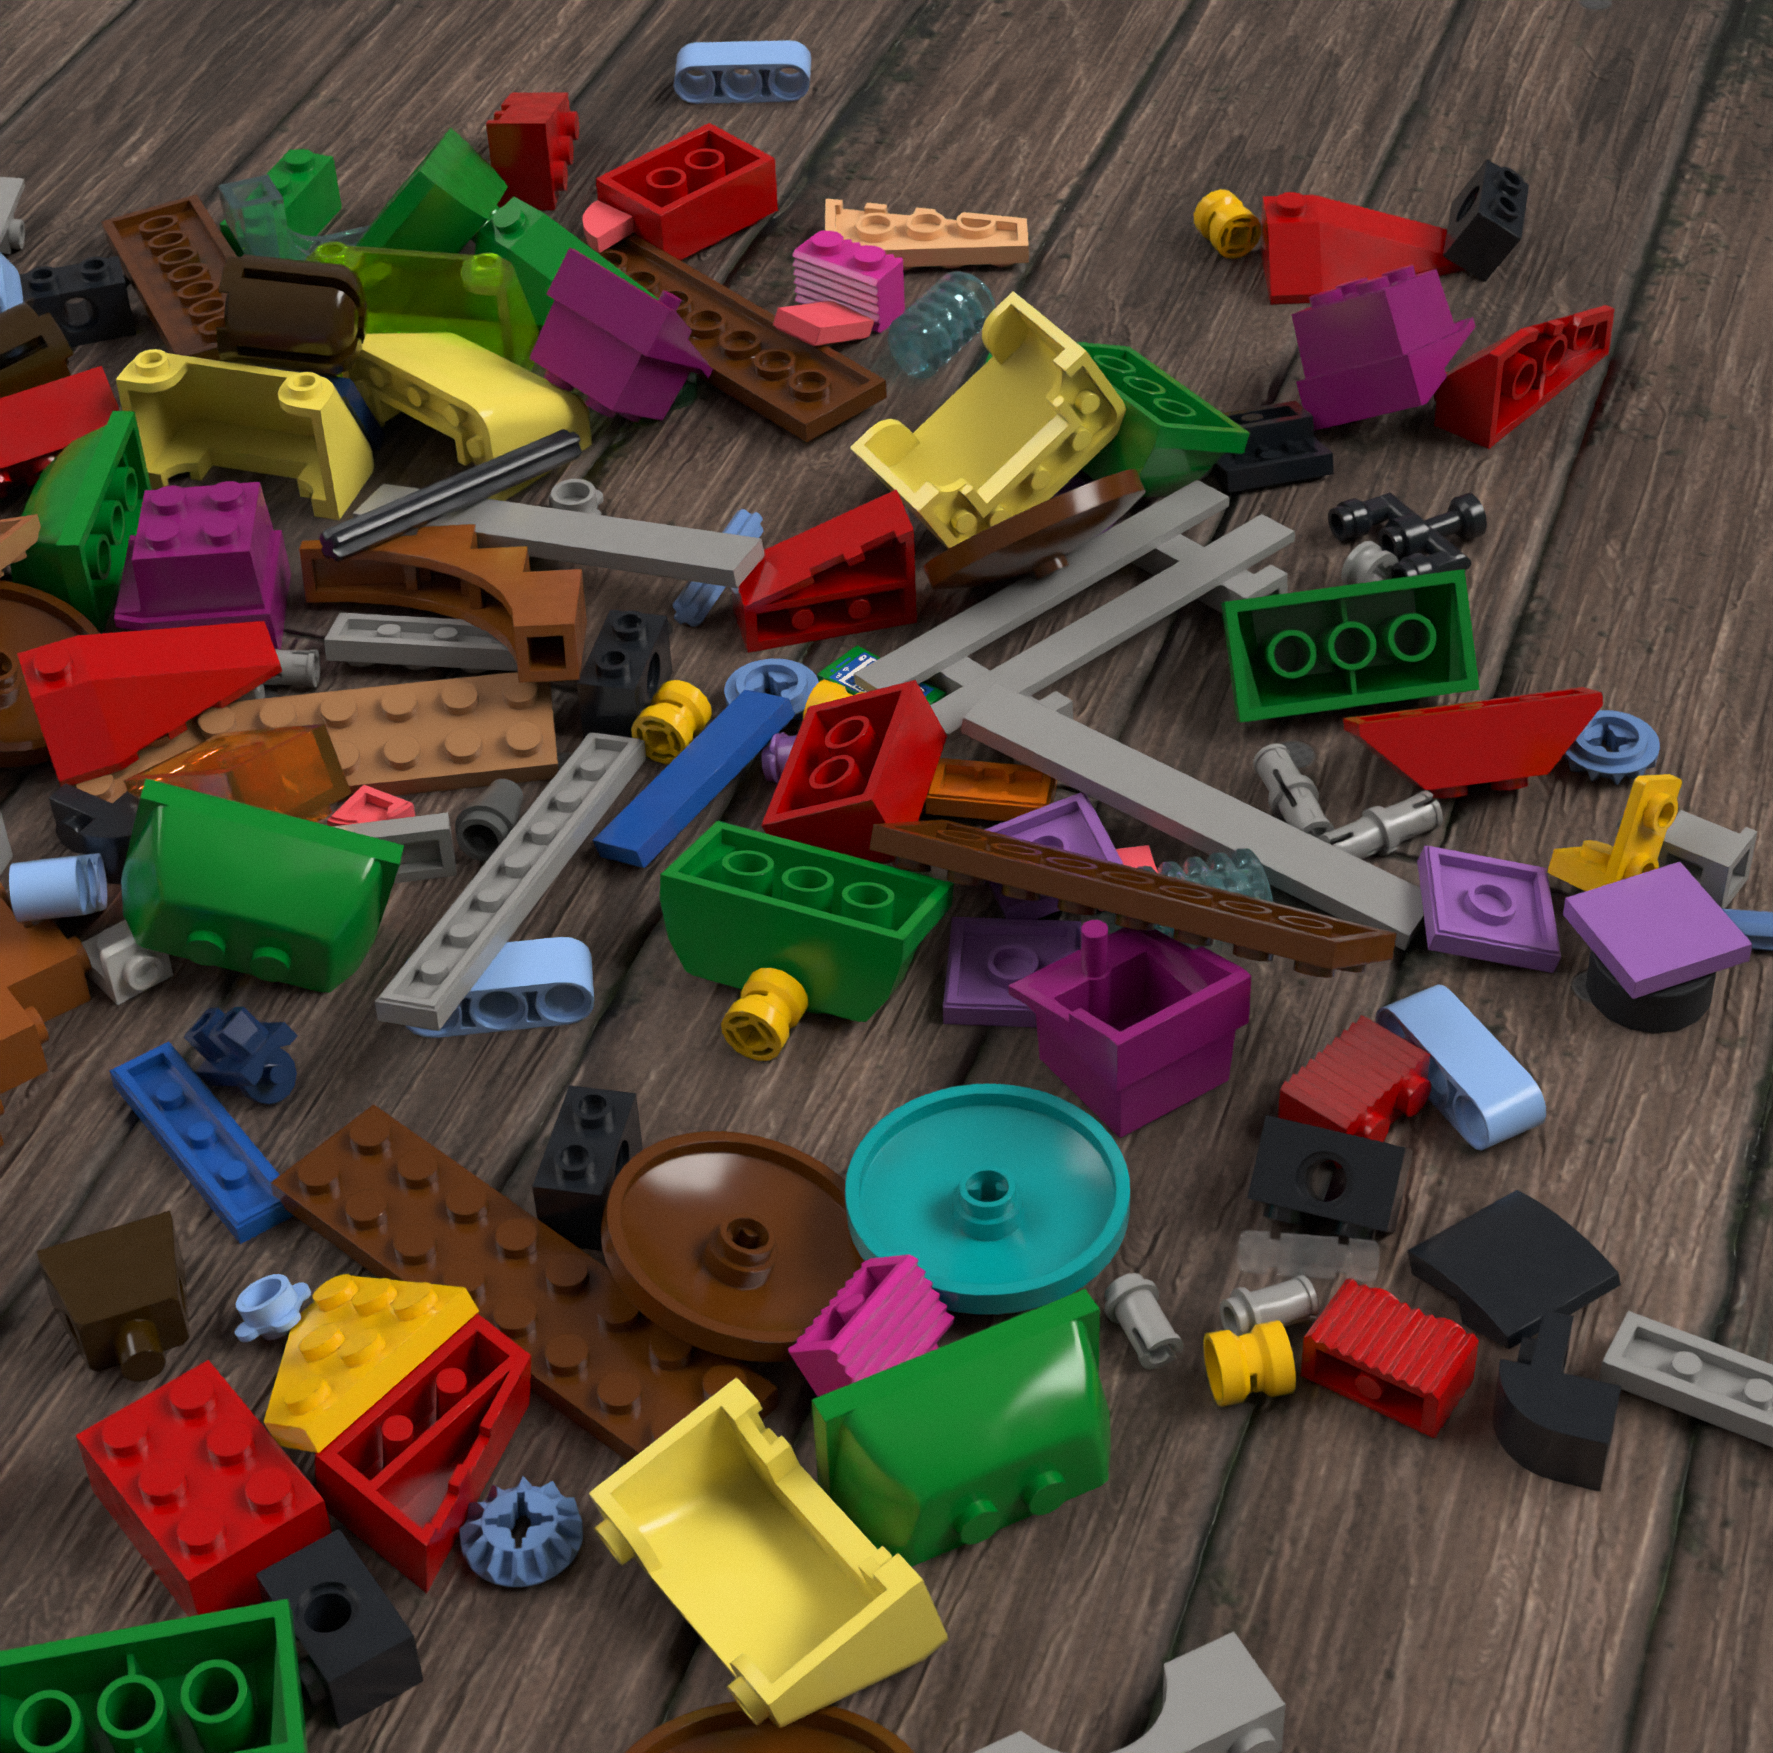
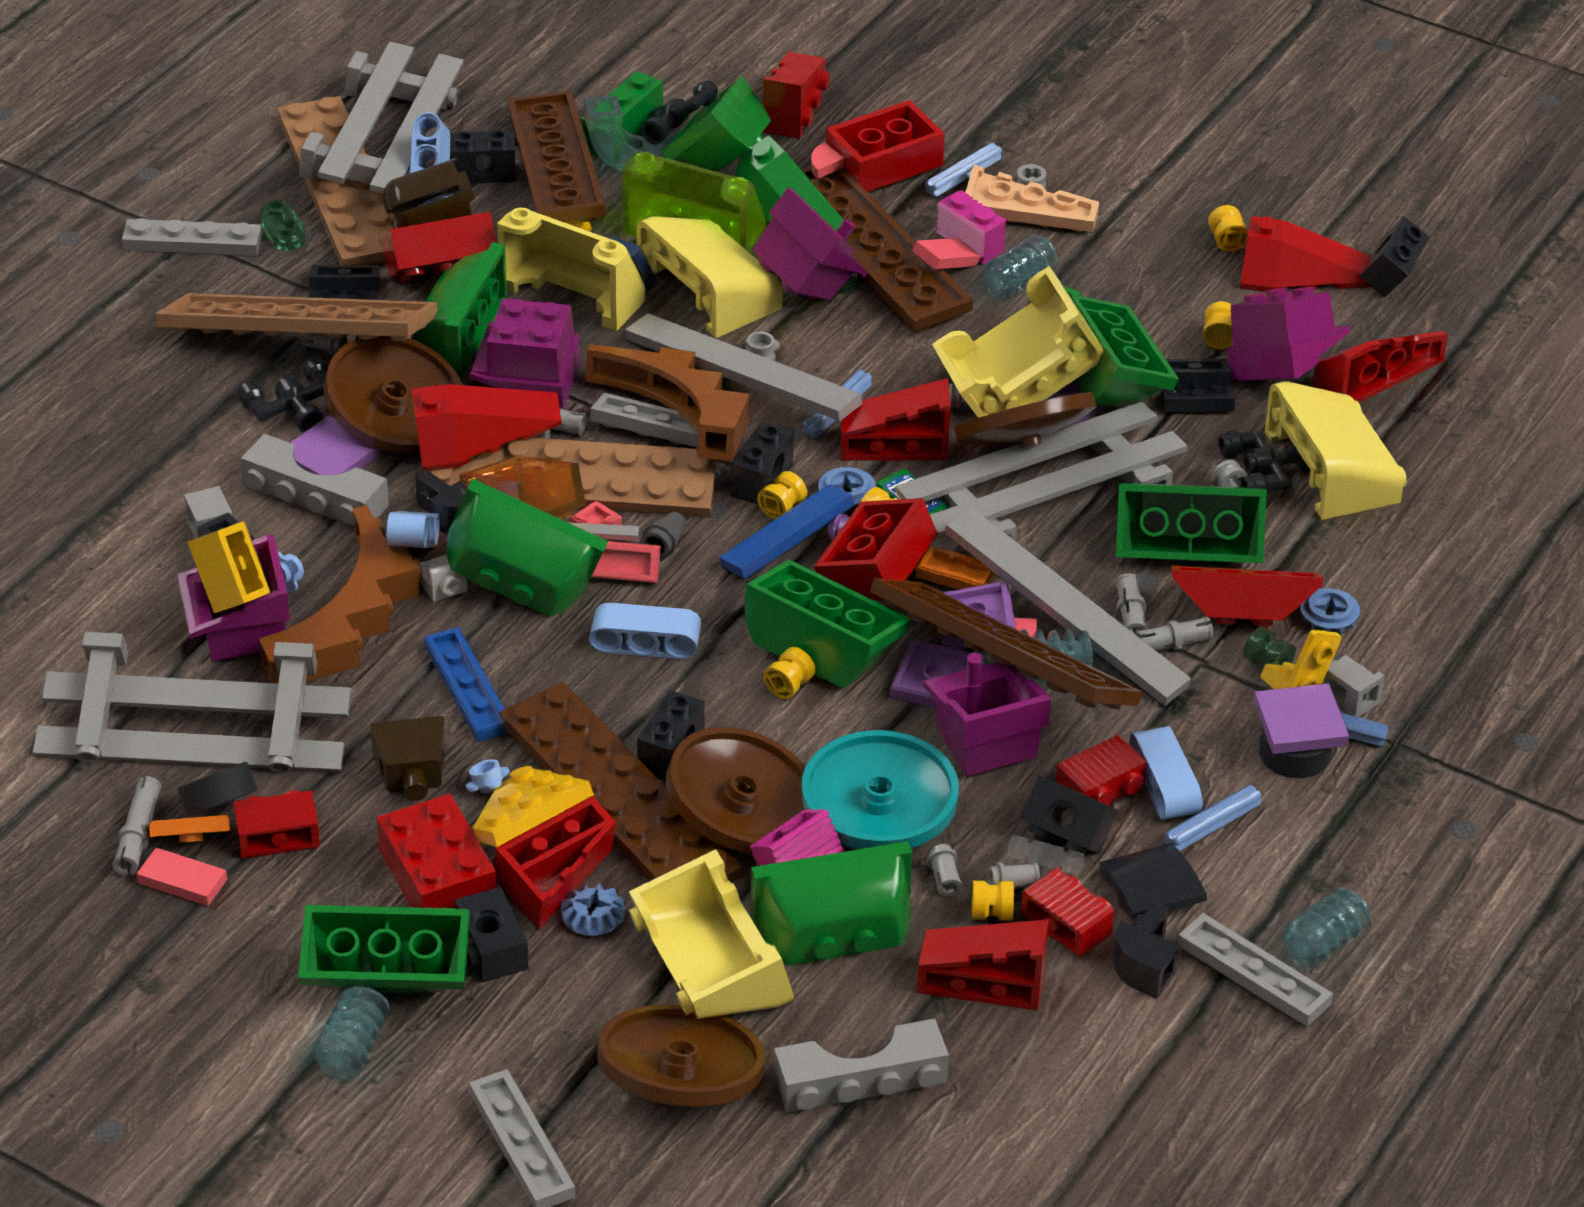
camera: 10 degrees right, 0 degrees up
(244, 1053) = (498, 641): dark blue hips -> none
(291, 315) = (610, 201): dark brown cylinder -> none
(364, 193) = (676, 112): none -> black piece
(436, 873) = (629, 562): none -> coral tile
(449, 495) = (685, 330): black axle -> none
(510, 883) = (668, 570): light grey tile -> none
(724, 85) = (966, 61): light blue beam -> none
(808, 211) = (962, 170): none -> medium blue axle
(909, 197) = (1031, 173): none -> light grey bush
(1269, 355) = (1218, 325): none -> yellow wheel
(1287, 1492) = (986, 963): none -> red wedge
(1488, 909) = (1217, 690): medium lavender tile -> none
(1544, 826) = (1265, 649): none -> clear green wheel
(1548, 512) = (1338, 447): none -> light yellow windscreen
(1567, 1129) = (1213, 817): none -> medium blue axle

